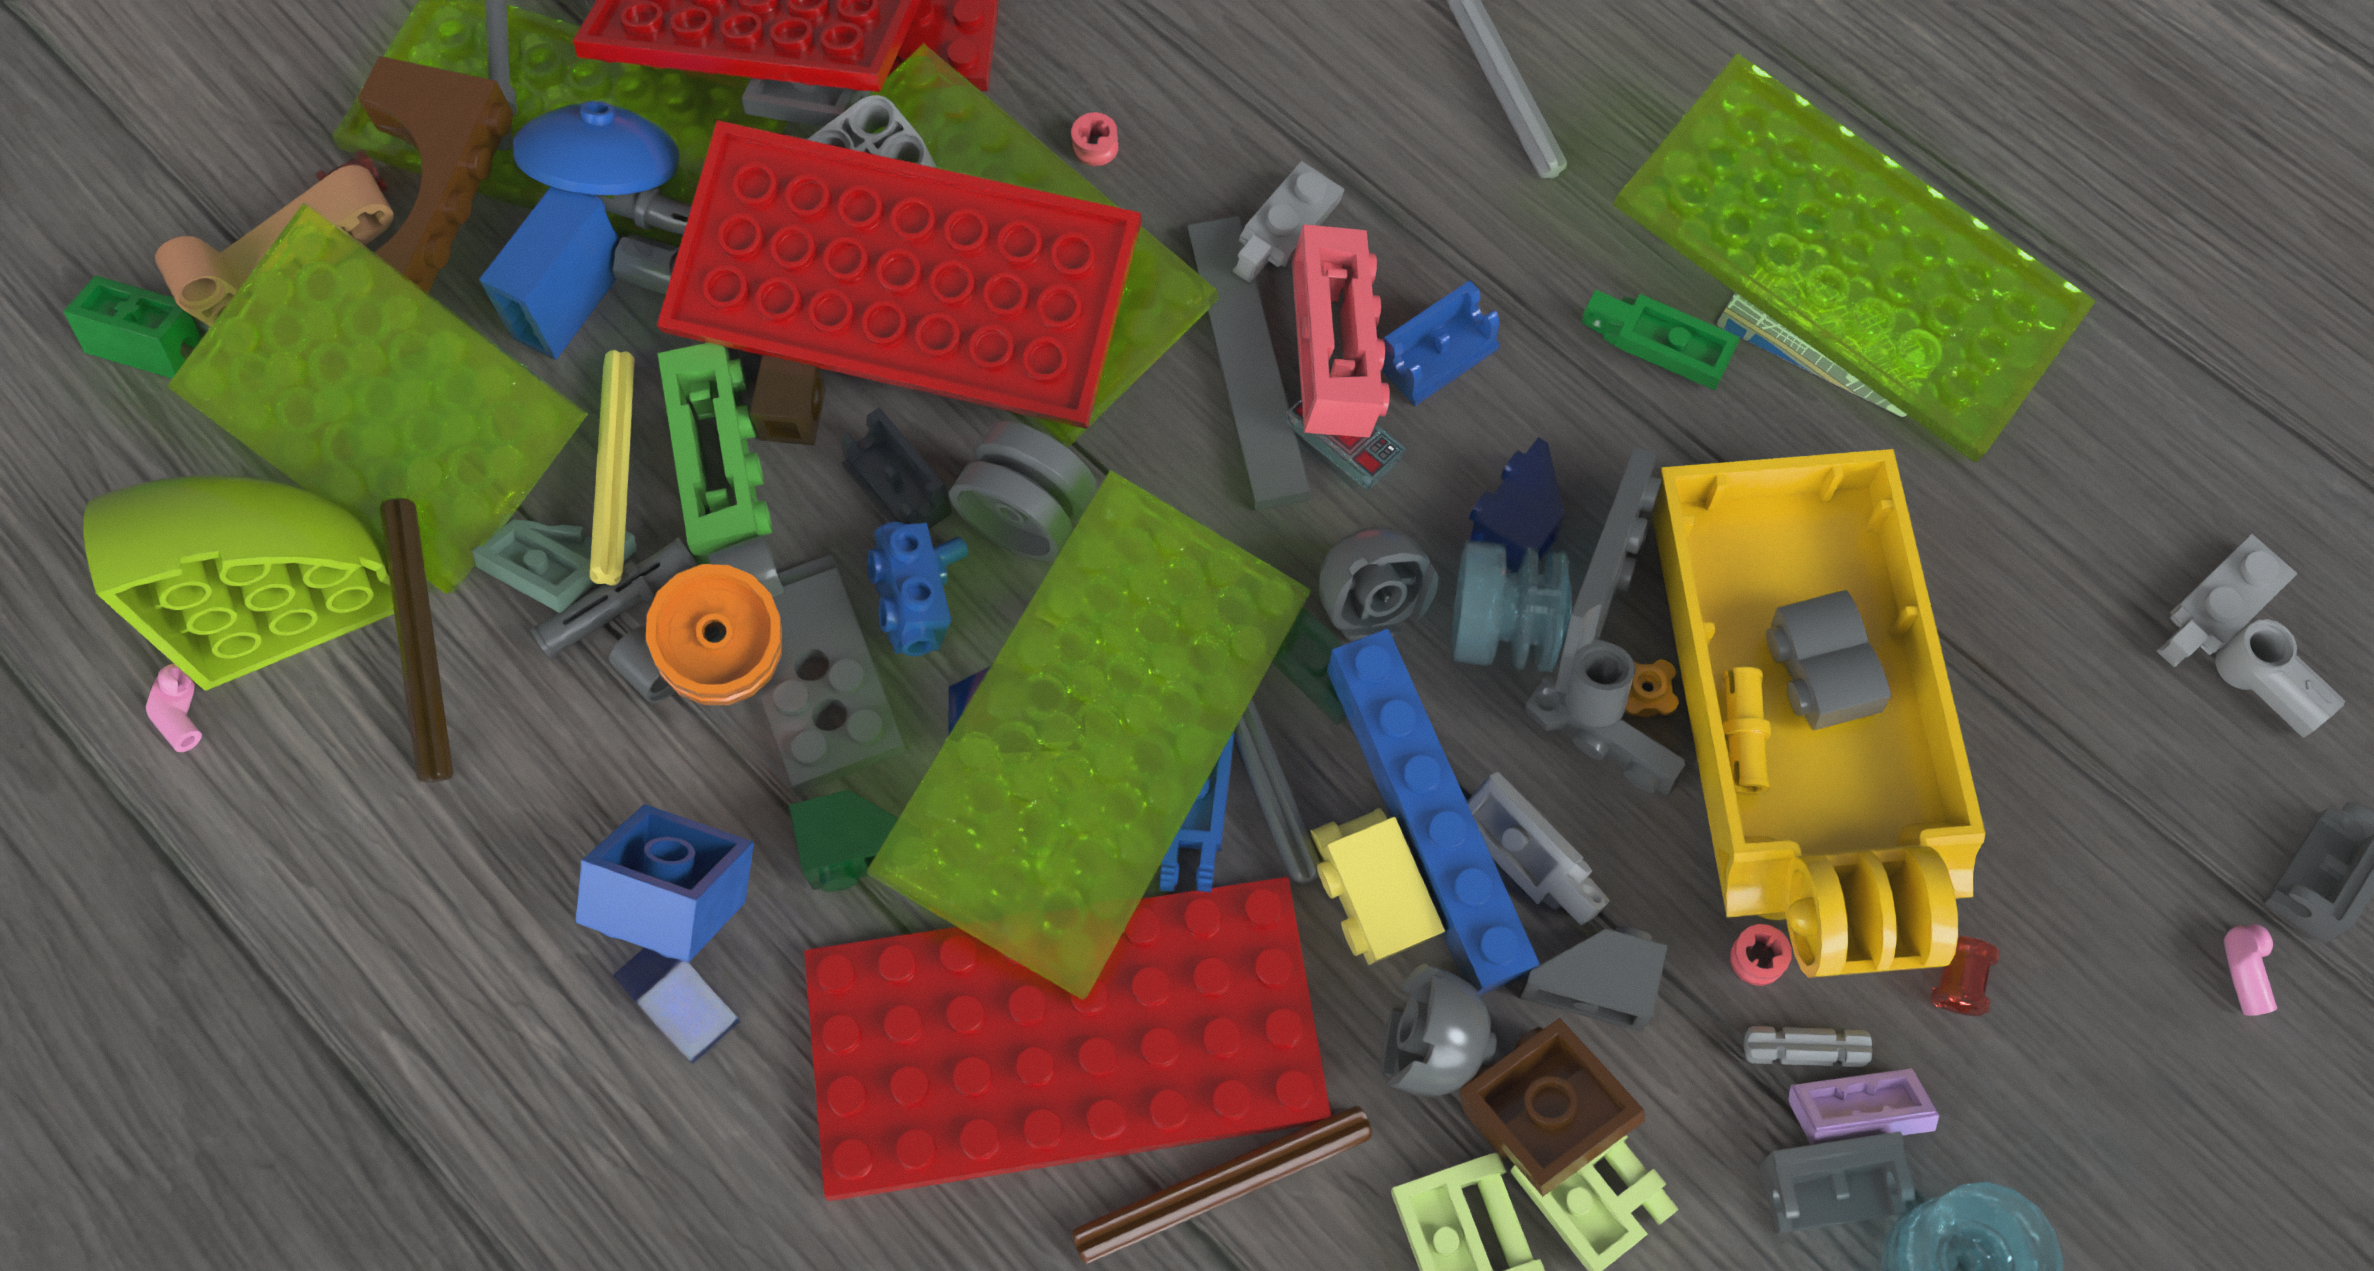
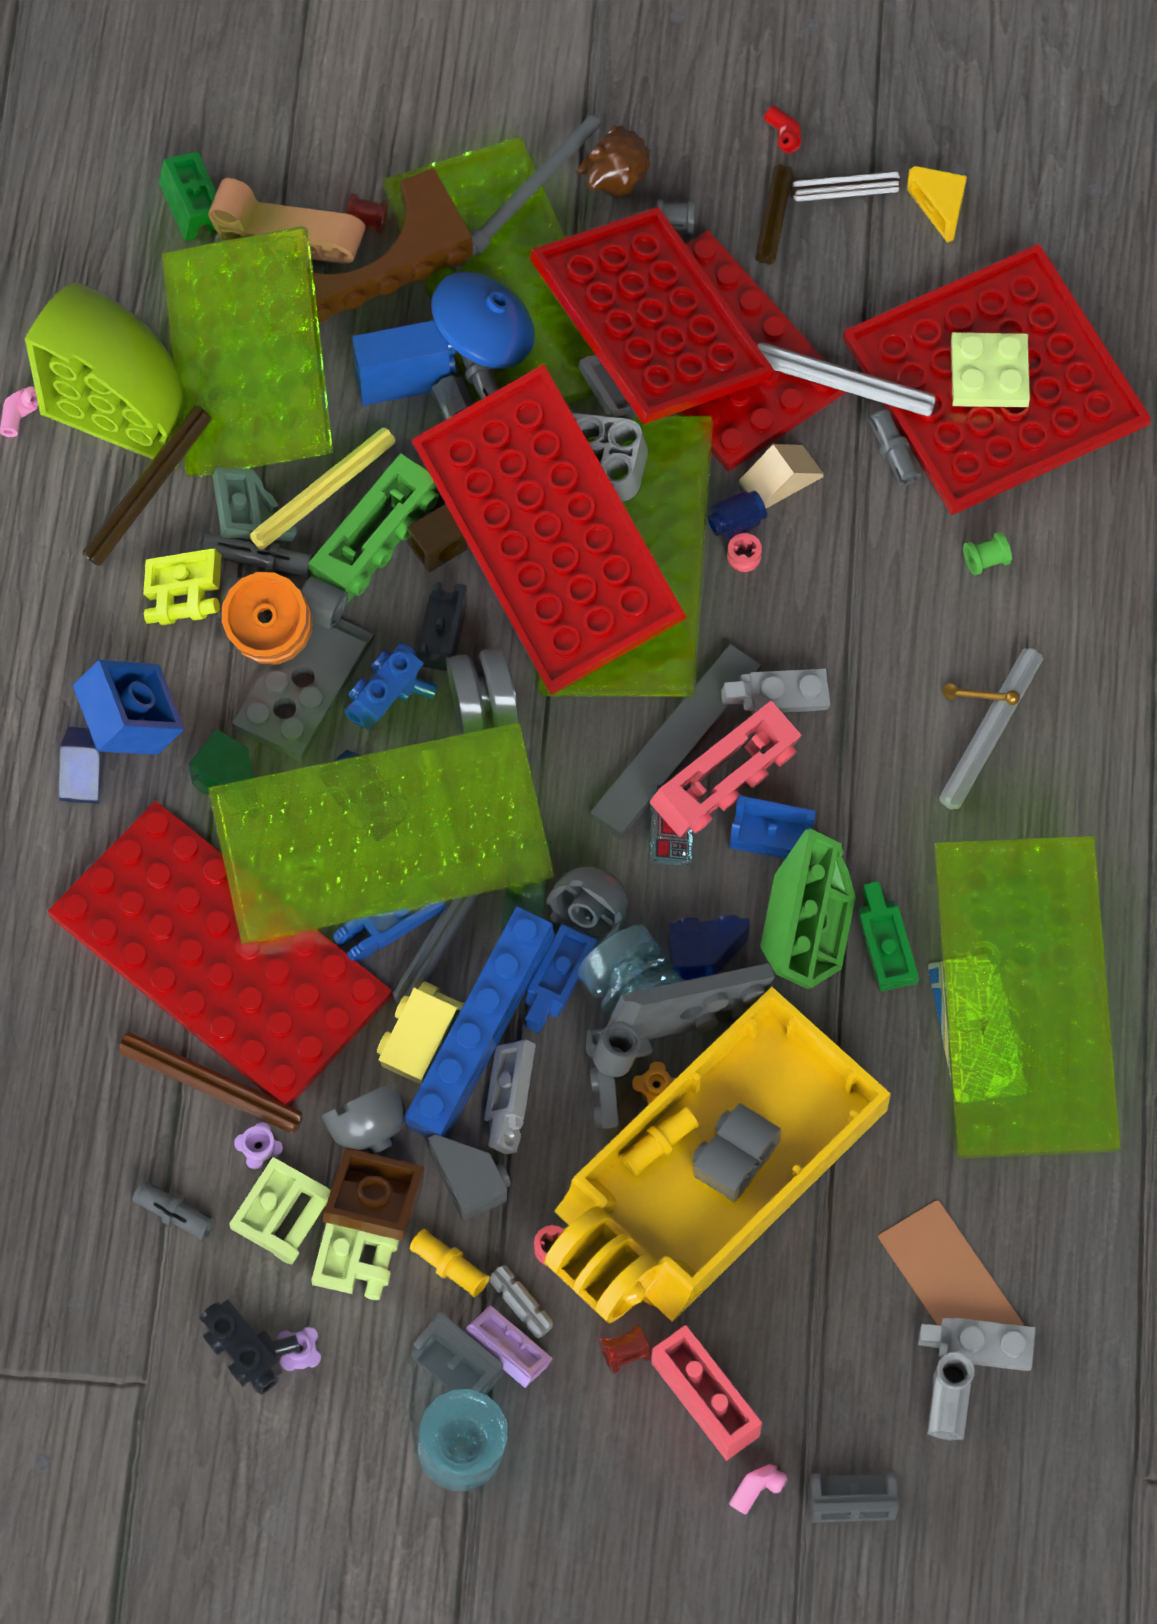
camera: 45 degrees right, 0 degrees up
(562, 691) = (178, 576): none -> neon yellow plate
(1041, 49) = (781, 473): none -> tan slope
(1051, 107) = (737, 514): none -> clear blue brick
(1368, 1179) = (261, 1134): none -> lavender plate
(1426, 78) = (951, 692): none -> pearl gold hinge
(1436, 685) = (557, 976): none -> blue hinge
(1571, 382) = (809, 912): none -> bright green wedge
(1699, 1088) = (449, 1262): none -> yellow pin
(2102, 573) = (945, 1269): none -> nougat sticker
(2104, 928) = (706, 1392): none -> coral brick

